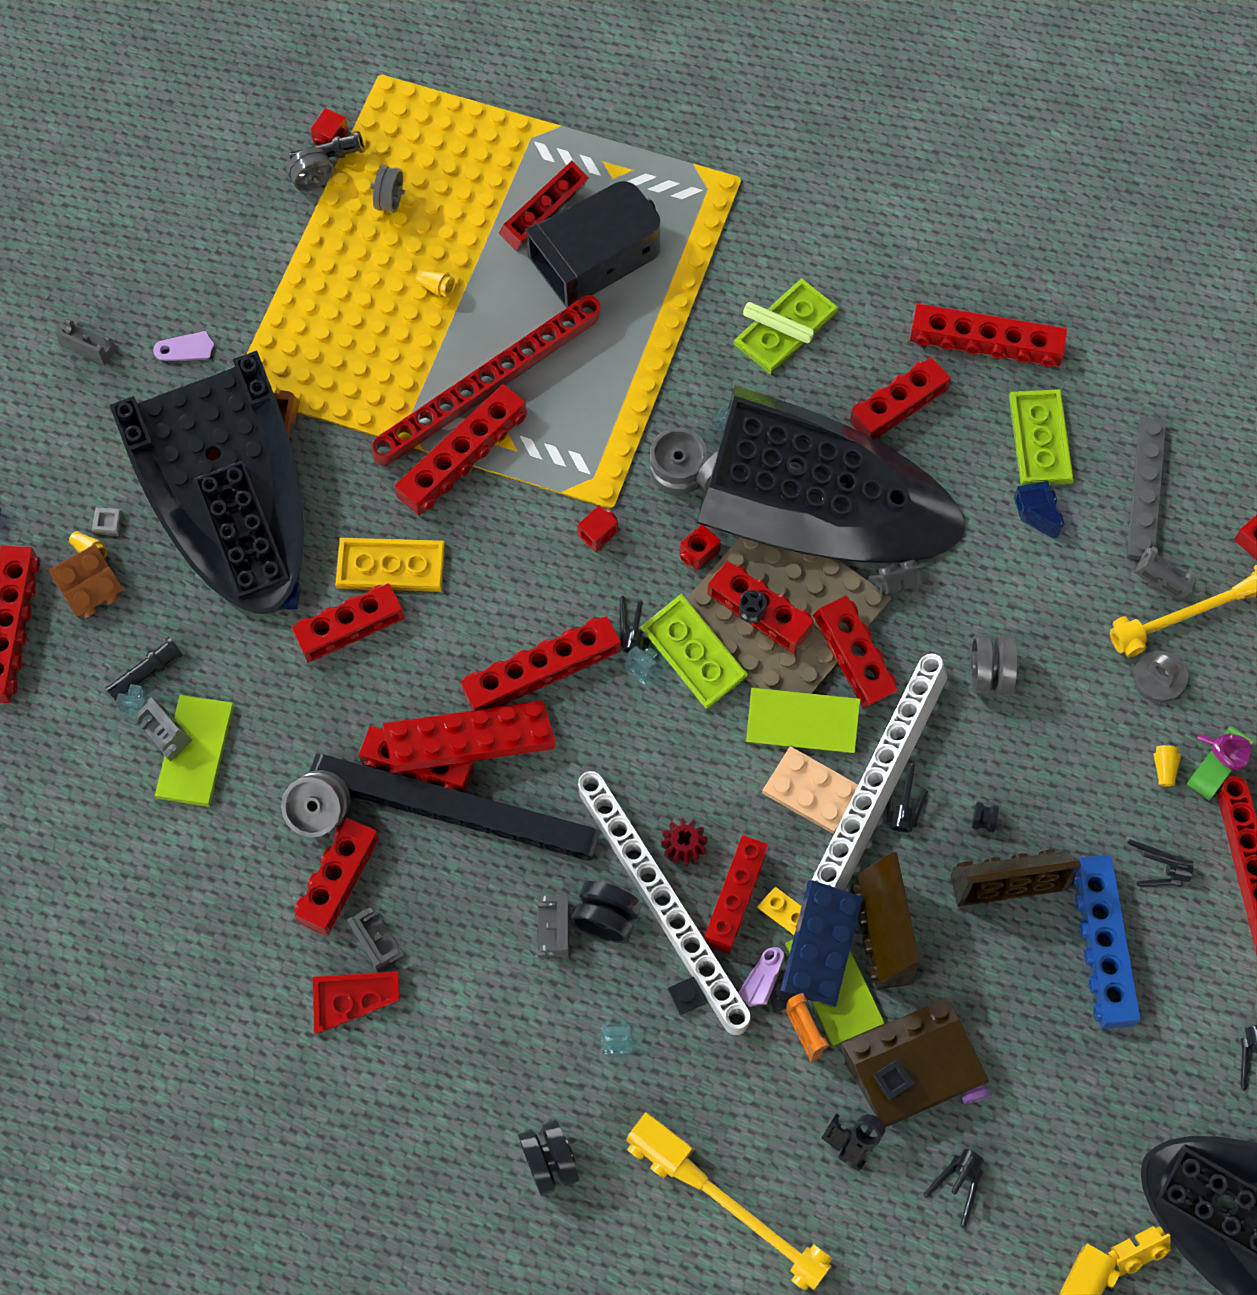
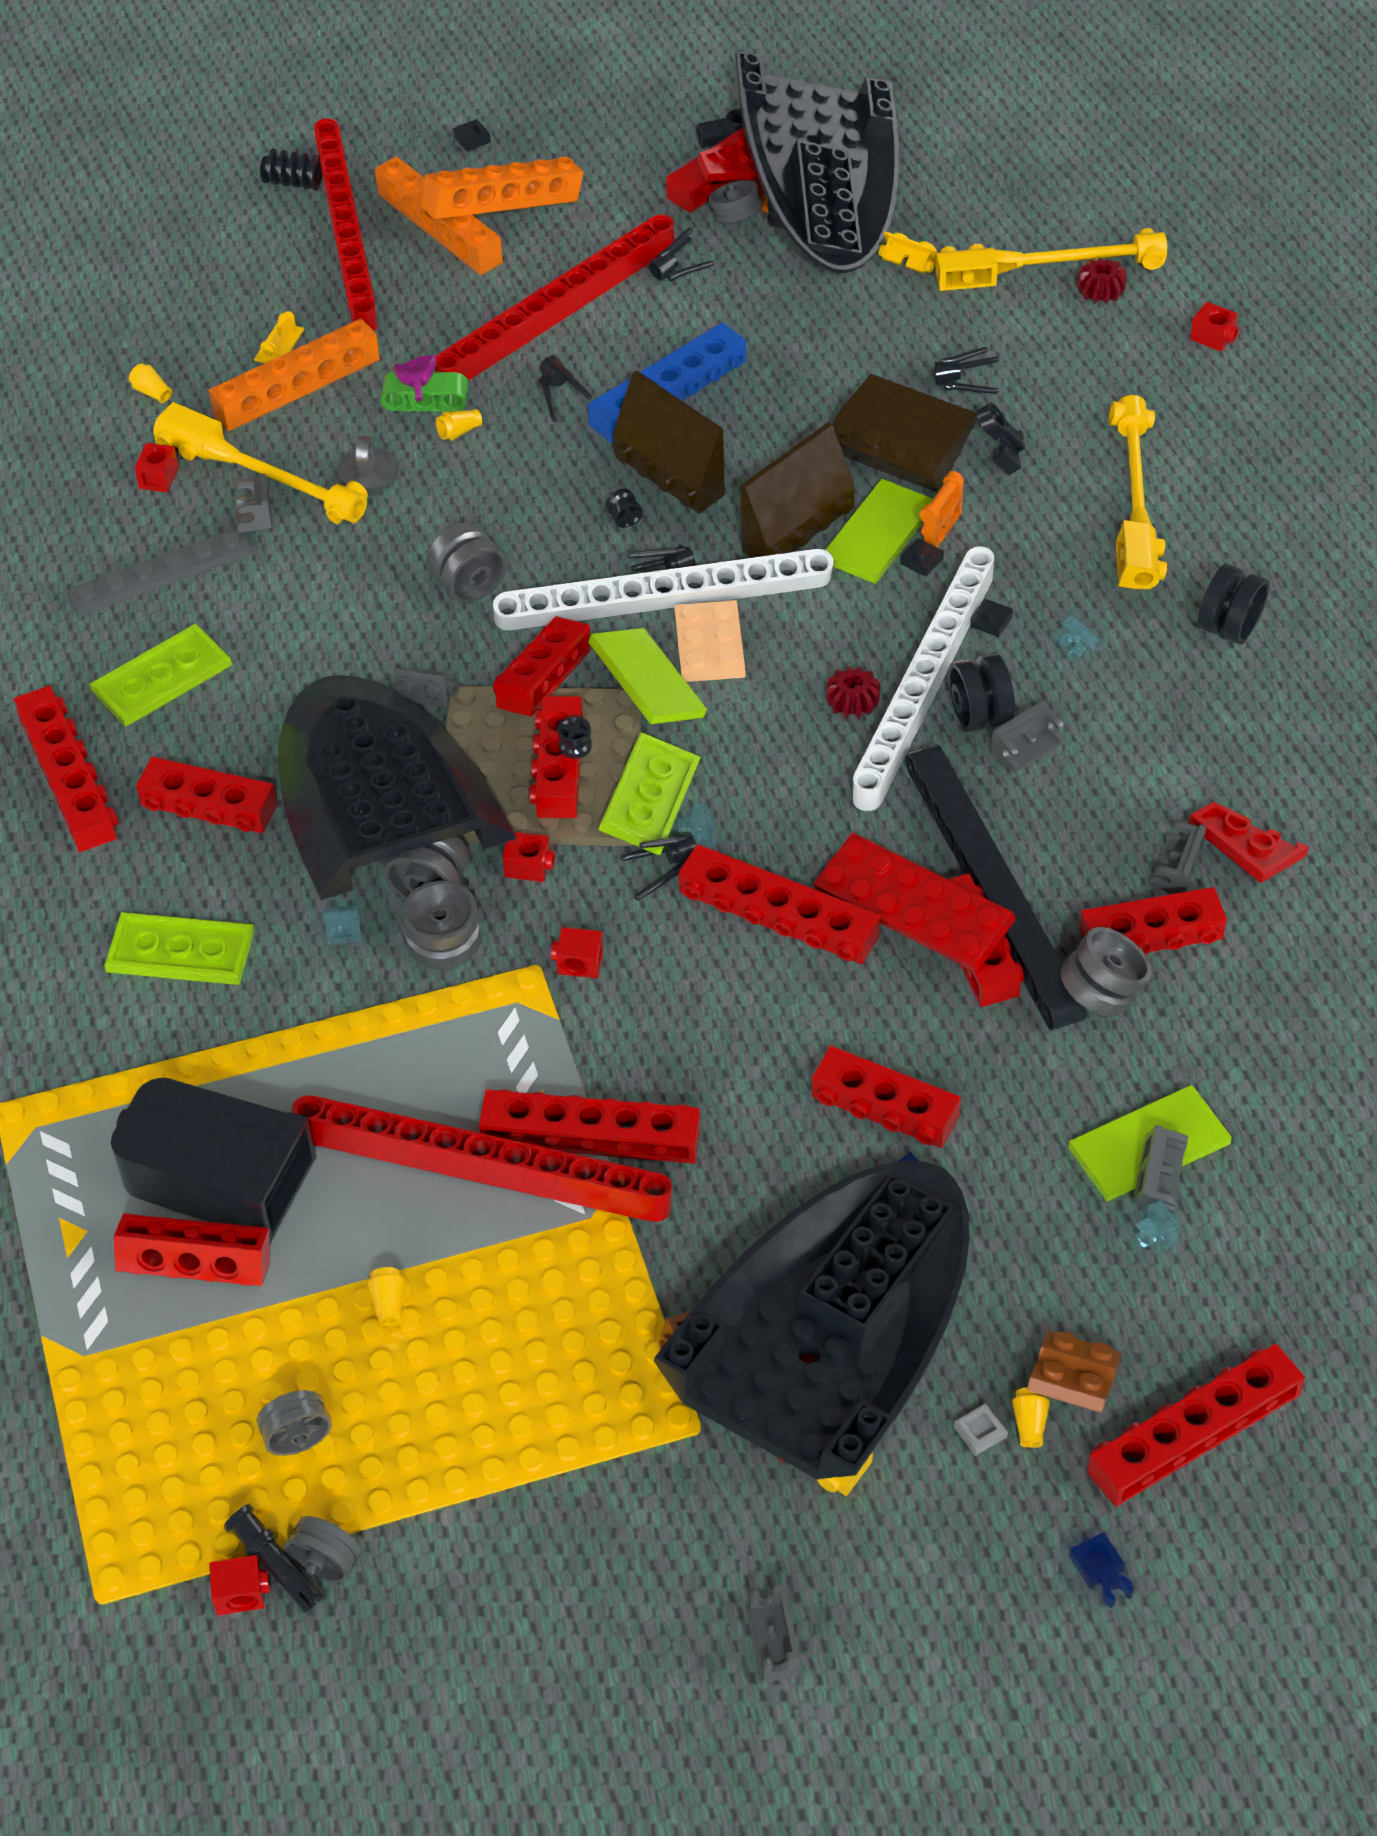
camera: 125 degrees left, 15 degrees down
(155, 661) = (1095, 1246): black pin -> none
(185, 348) = (686, 1522): lavender piece -> none
(400, 562) = (781, 1115): yellow tile -> none
(736, 894) = (866, 626): red brick -> none
(762, 978) = (923, 574): lavender piece -> none
(778, 322) = (187, 943): yellowish green axle -> none
(781, 909) = (851, 578): yellow hinge -> none
(821, 943) = (858, 532): dark blue plate -> none
(893, 1080) = (937, 414): black plate -> none
(1038, 508) = (251, 629): clear blue slope -> none

